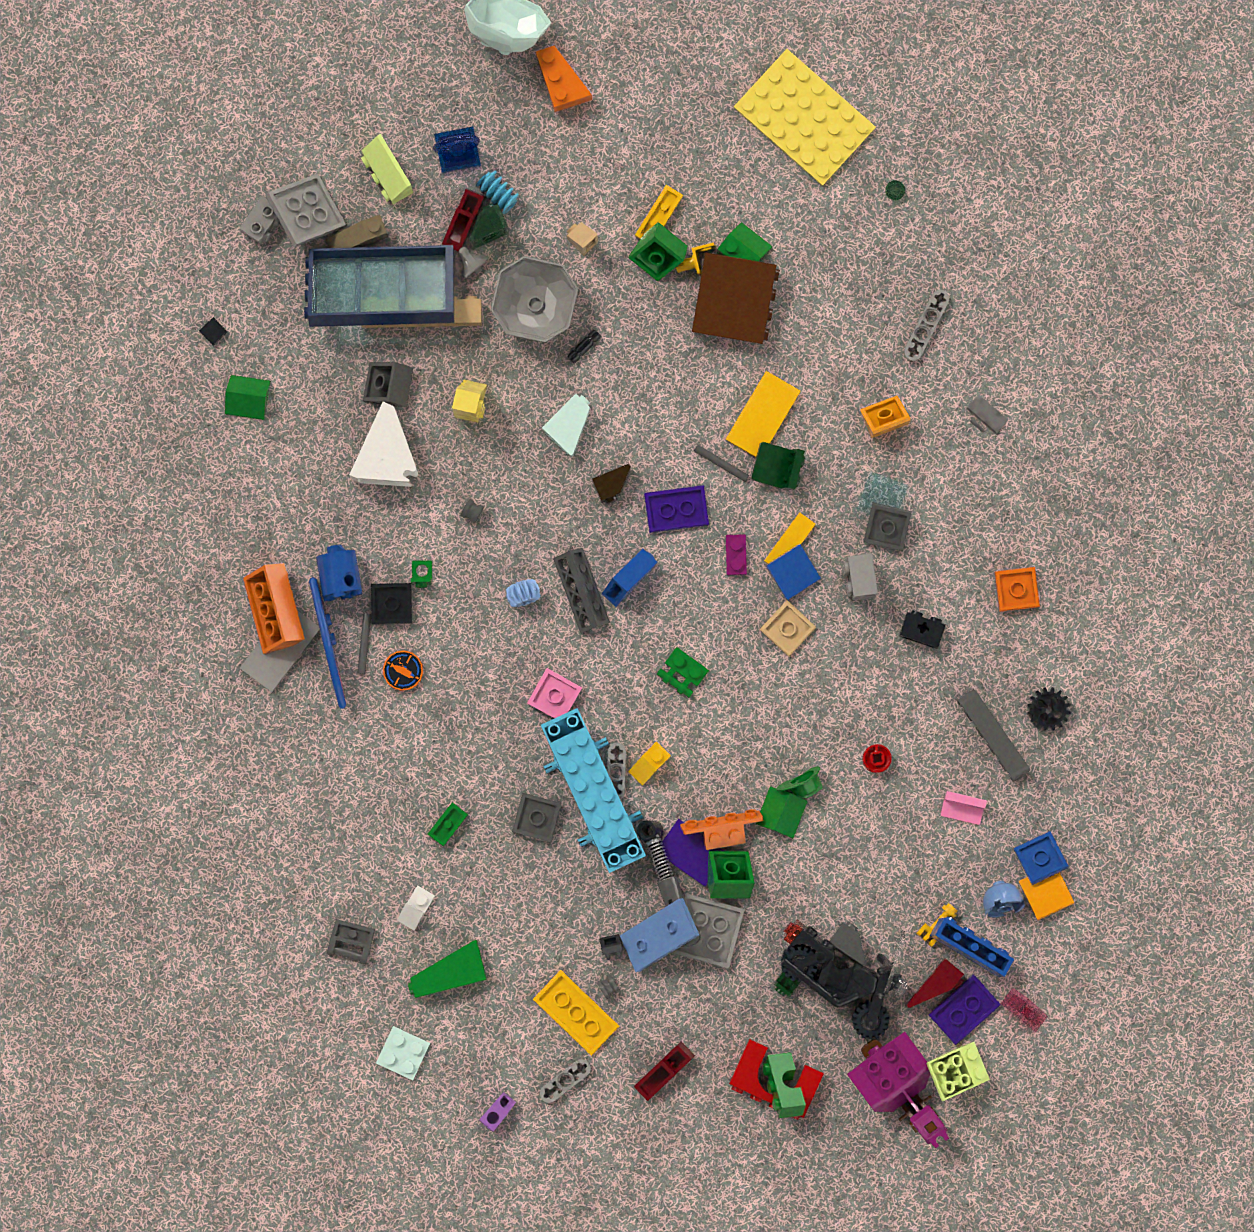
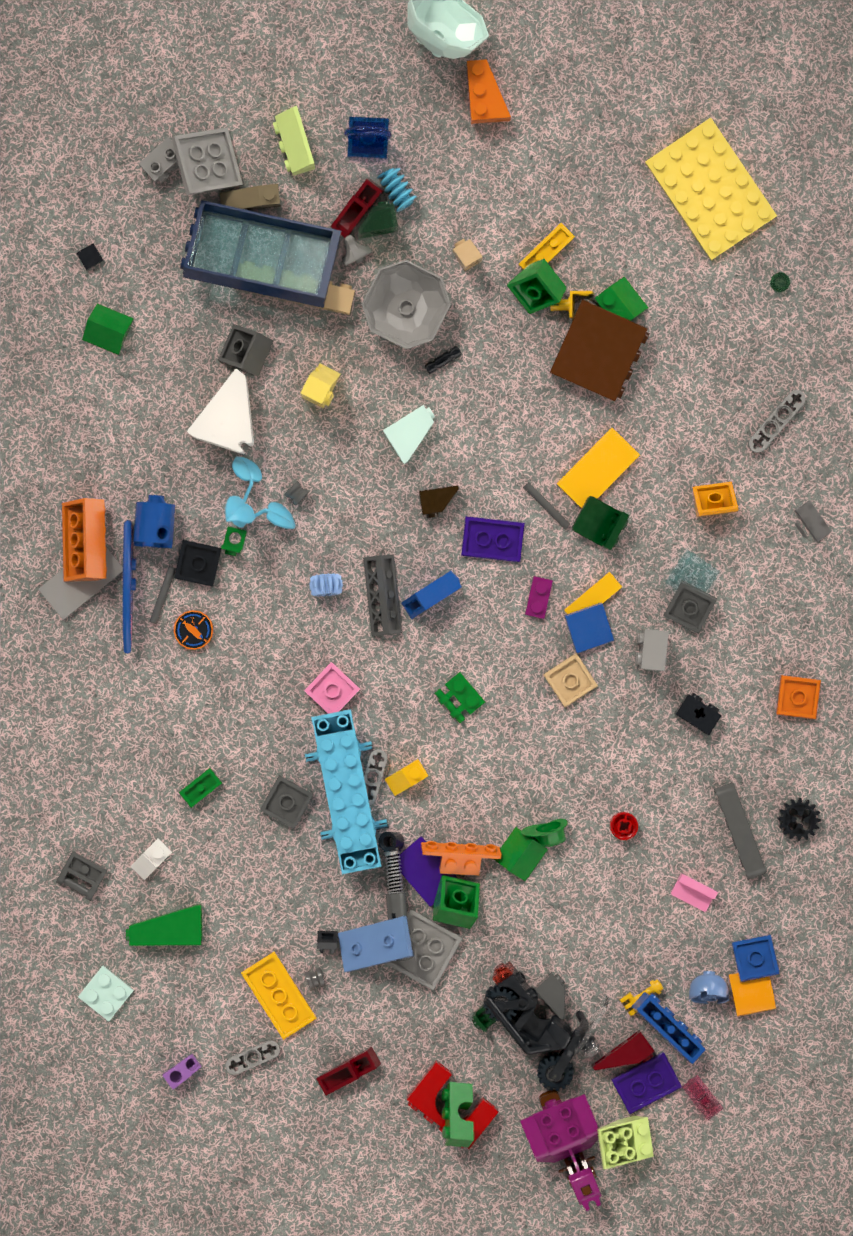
camera: 10 degrees right, 5 degrees up
(421, 540) = (241, 513): none -> medium azure plant

